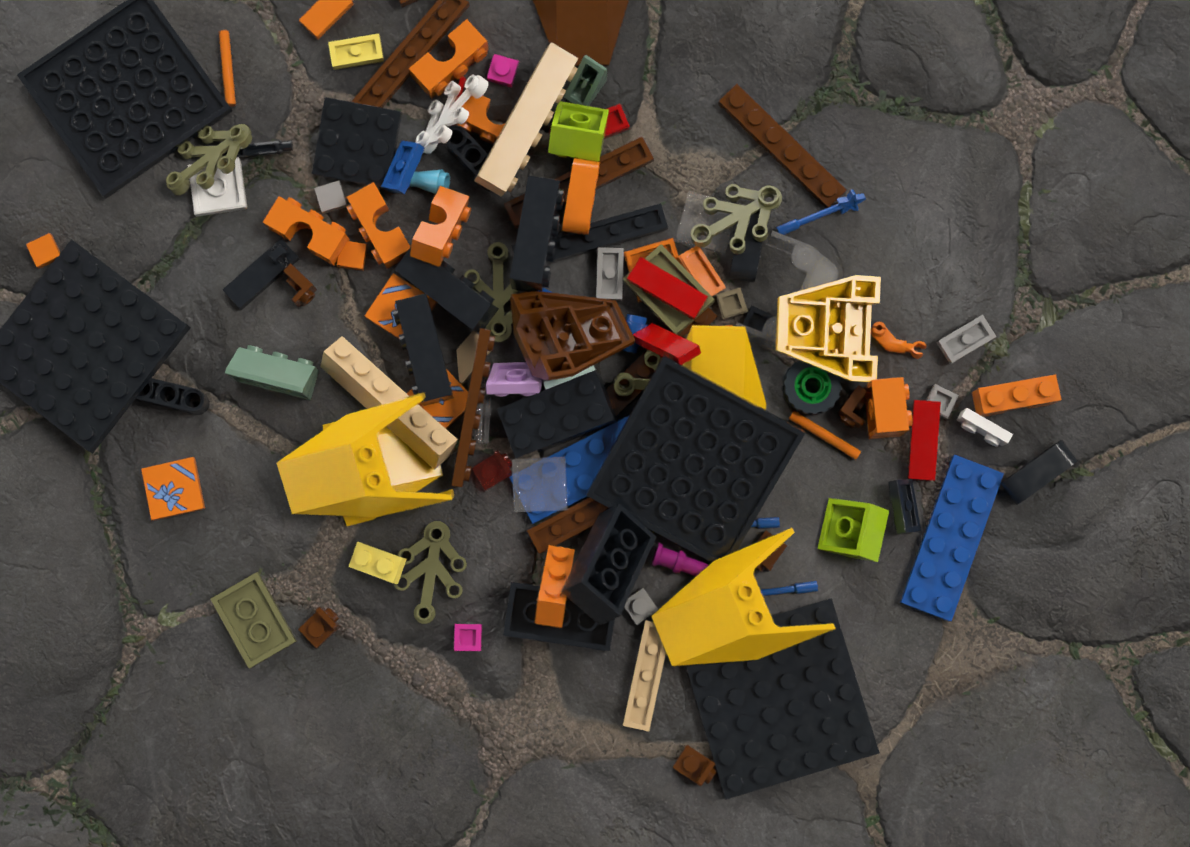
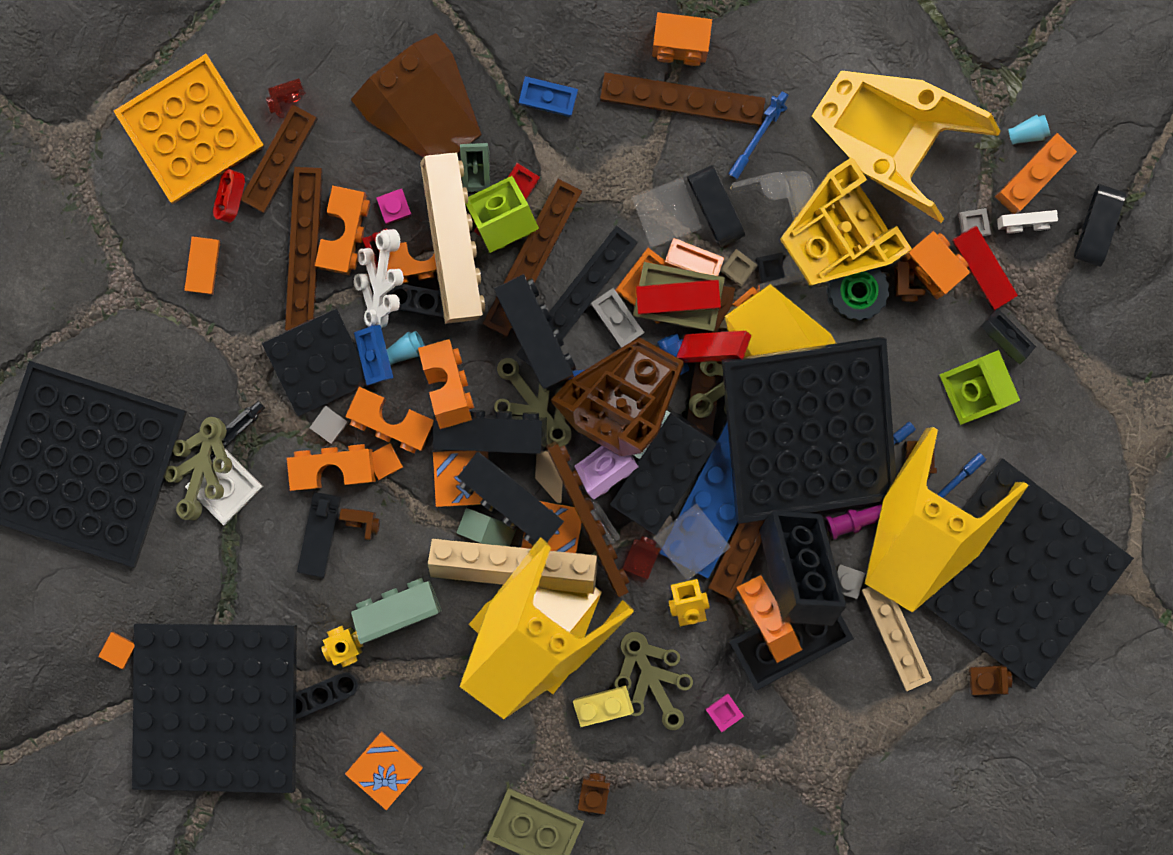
camera: 35 degrees left, 5 degrees up
(217, 376) = (351, 642): none -> yellow brick
(227, 70) = (153, 377): orange bar -> none
(356, 51) = (255, 282): light yellow plate -> none
(390, 361) = (485, 529): none -> sand green slope
(500, 535) = (688, 603): none -> yellow brick
(580, 196) = (546, 270): orange beam -> none
(680, 71) = (548, 96): none -> blue plate
(738, 214) = (692, 187): olive plant -> none
(813, 97) = (681, 38): none -> orange brick
(824, 435) = (897, 323): orange bar -> none
(891, 344) = (893, 203): orange arm -> none
(931, 278) = (893, 124): none -> yellow windscreen
(951, 538) = (1065, 333): blue plate -> none
(966, 339) = (958, 156): light grey plate -> none
(1036, 360) = (1031, 130): none -> medium azure cone

